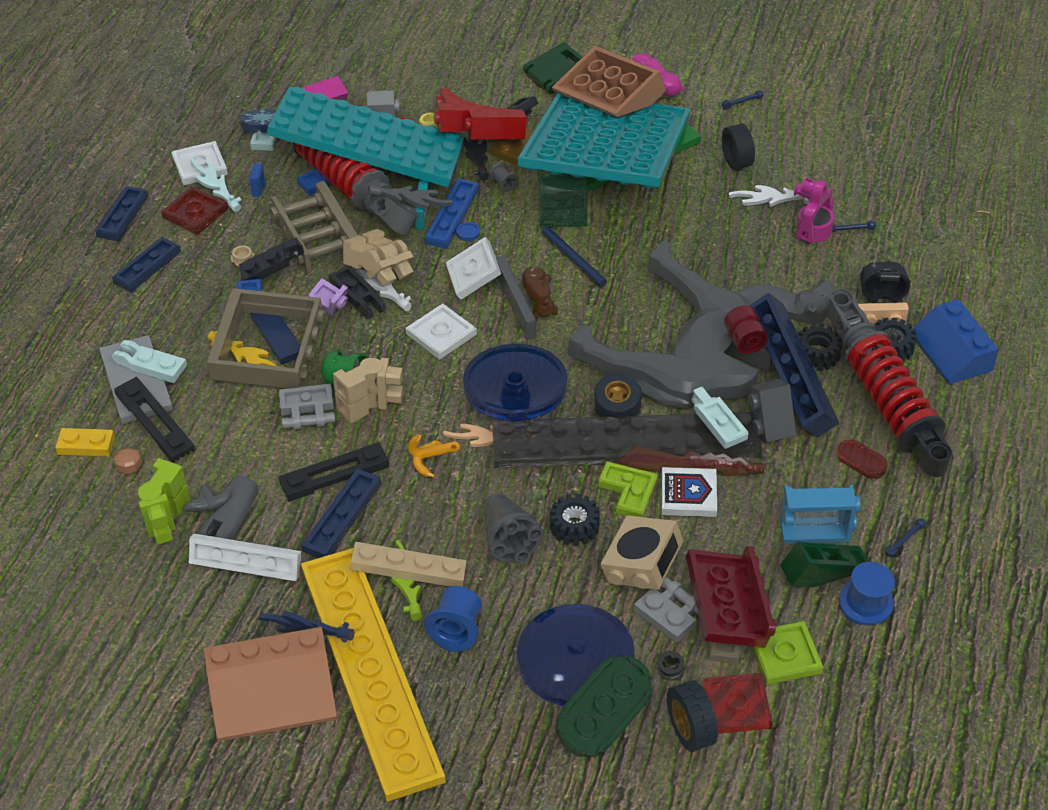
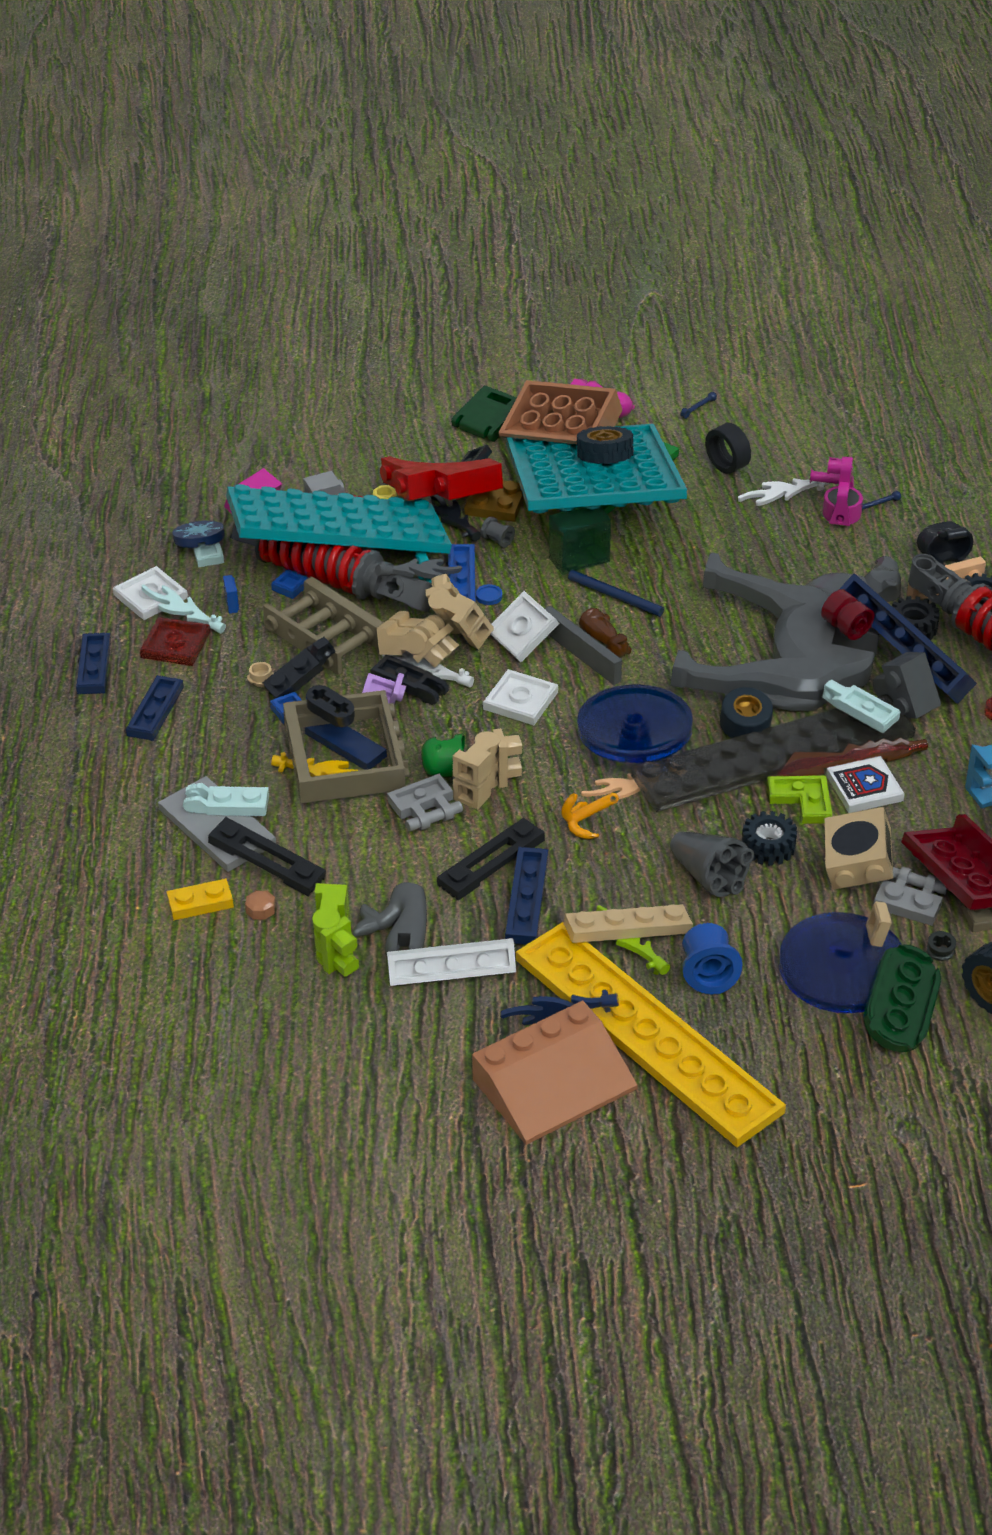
camera: 20 degrees left, 5 degrees down
(261, 303) = (330, 705): none -> black beam
(422, 241) = (458, 611): none -> tan hips
(614, 630) = (878, 924): none -> tan tile
(623, 120) = (605, 444): none -> black wheel

